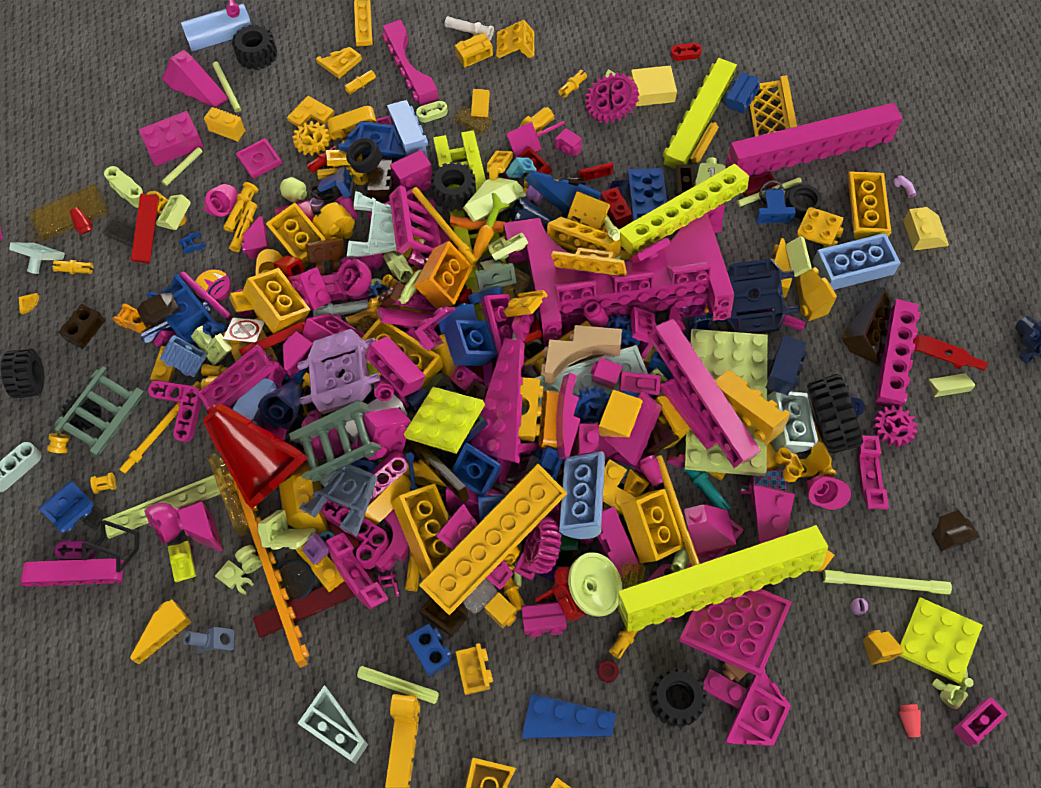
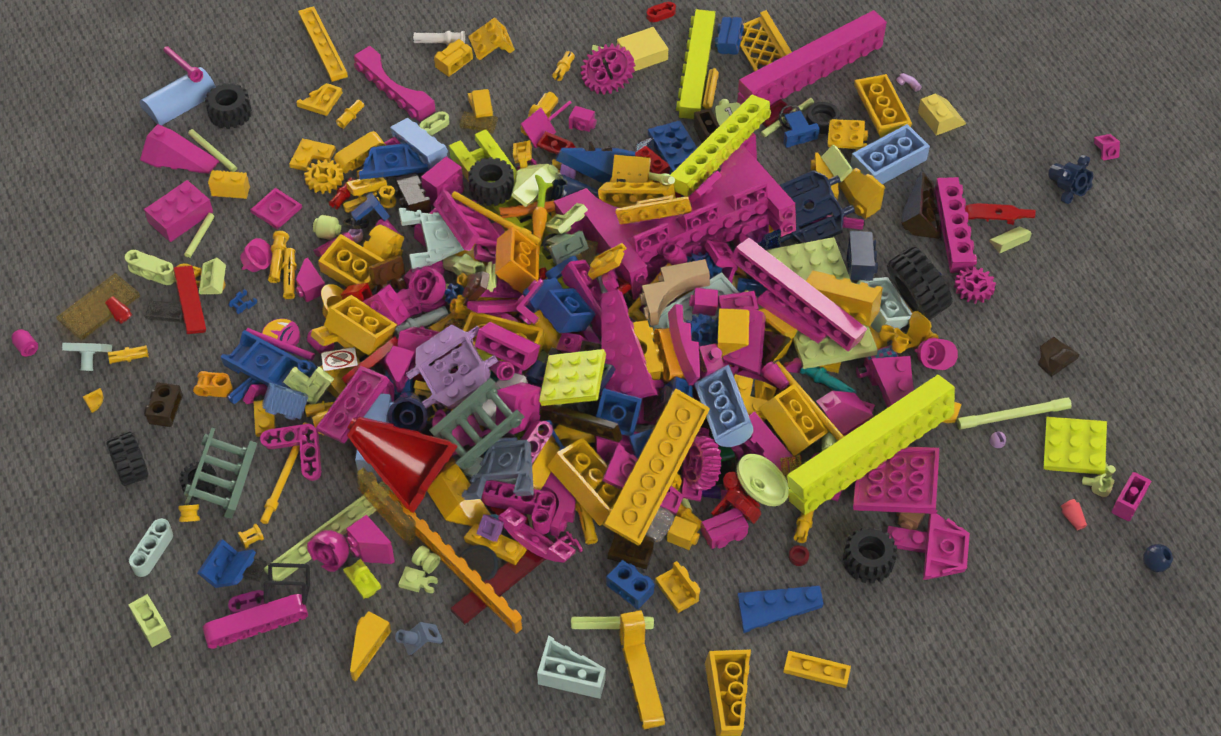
camera: 20 degrees left, 10 degrees down
(157, 308) = (240, 365): dark brown slope -> none
(275, 532) = (442, 525): yellowish green bracket -> none
(370, 162) = (386, 166): black tyre -> none
(519, 167) = (544, 150): medium azure bracket -> none
(596, 171) = (618, 138): red slope -> none
(870, 474) = (967, 329): dark pink slope -> none
(881, 647) = (1029, 464): yellow slope -> none

